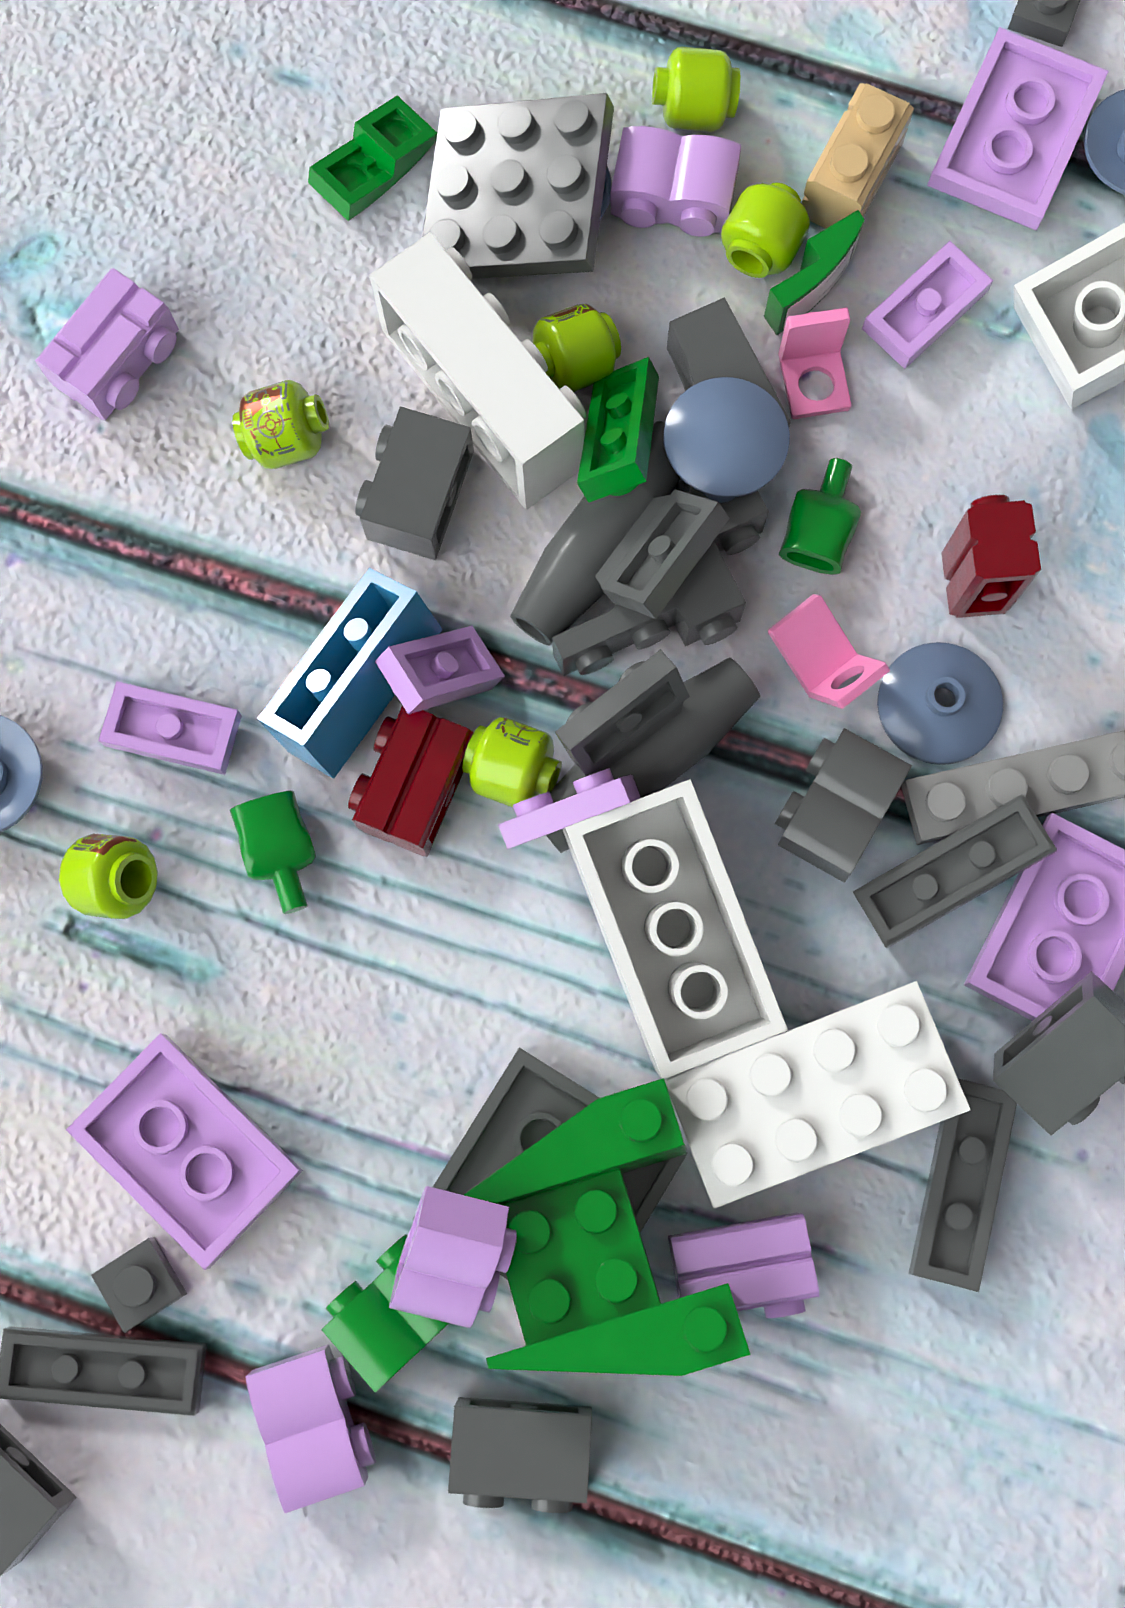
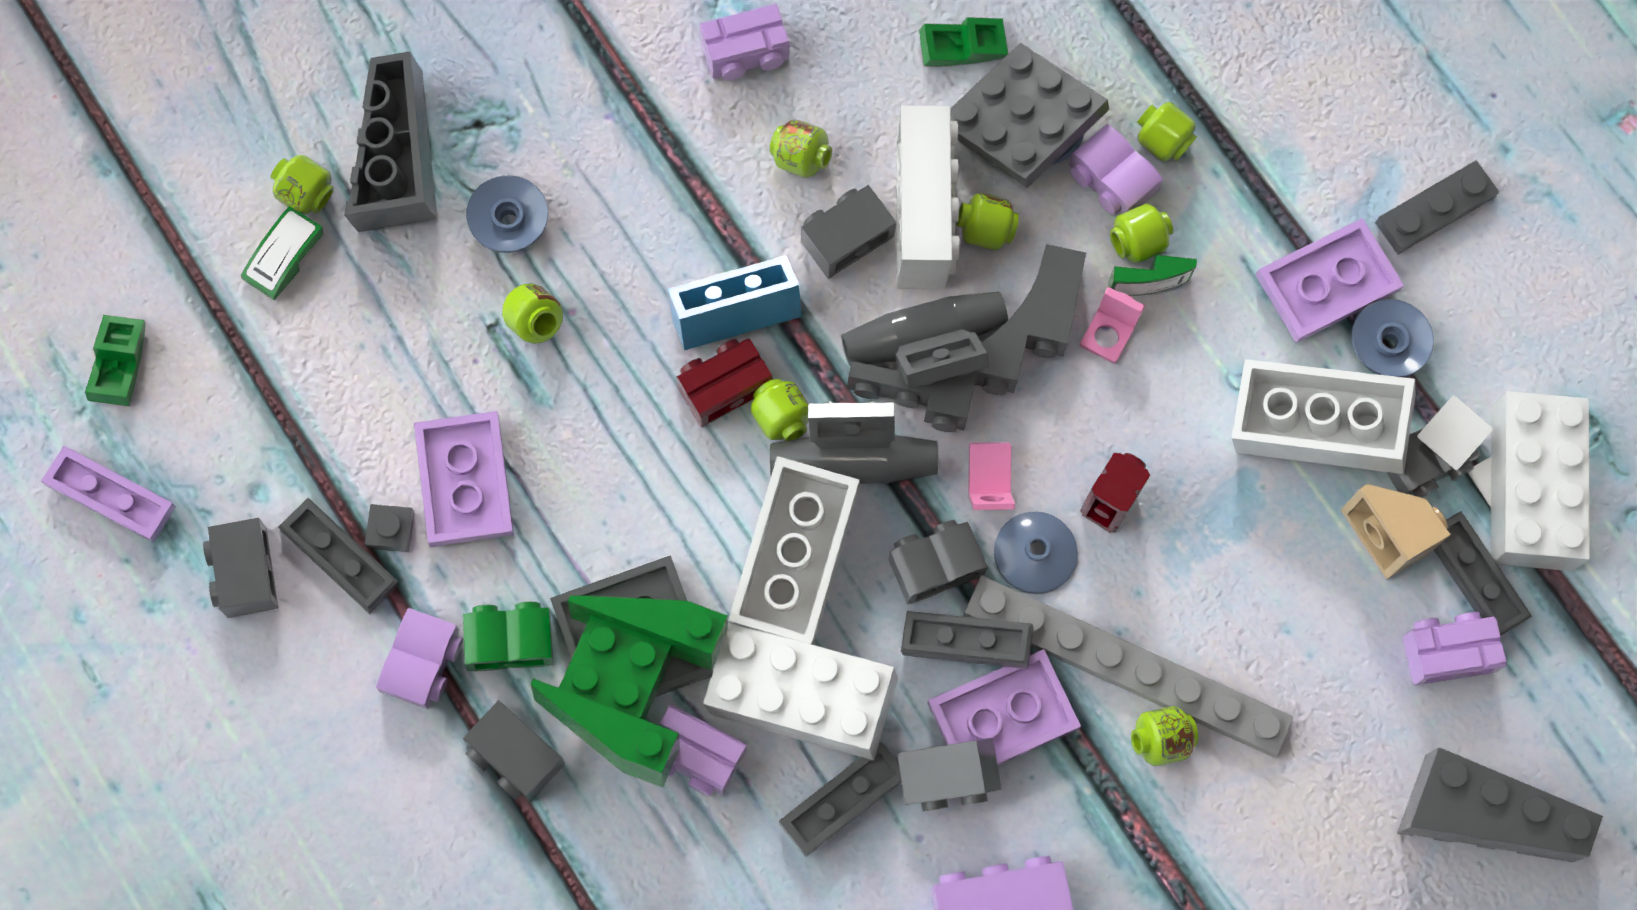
camera: 30 degrees right, 5 degrees down
(170, 728) = (622, 263): lavender plate -> none
(275, 845) = (628, 361): green piece -> none
(439, 669) = (782, 334): lavender plate -> none
(453, 1258) = (553, 619): lavender brick -> none
(542, 816) = (772, 444): lavender plate -> none
(619, 431) = (971, 280): green plate -> none
(726, 438) = (1024, 325): sand blue dish -> none
(822, 523) = (1048, 411): green piece -> none
(857, 156) = (1222, 231): tan brick -> none
(927, 304) = (1199, 338): lavender plate -> none

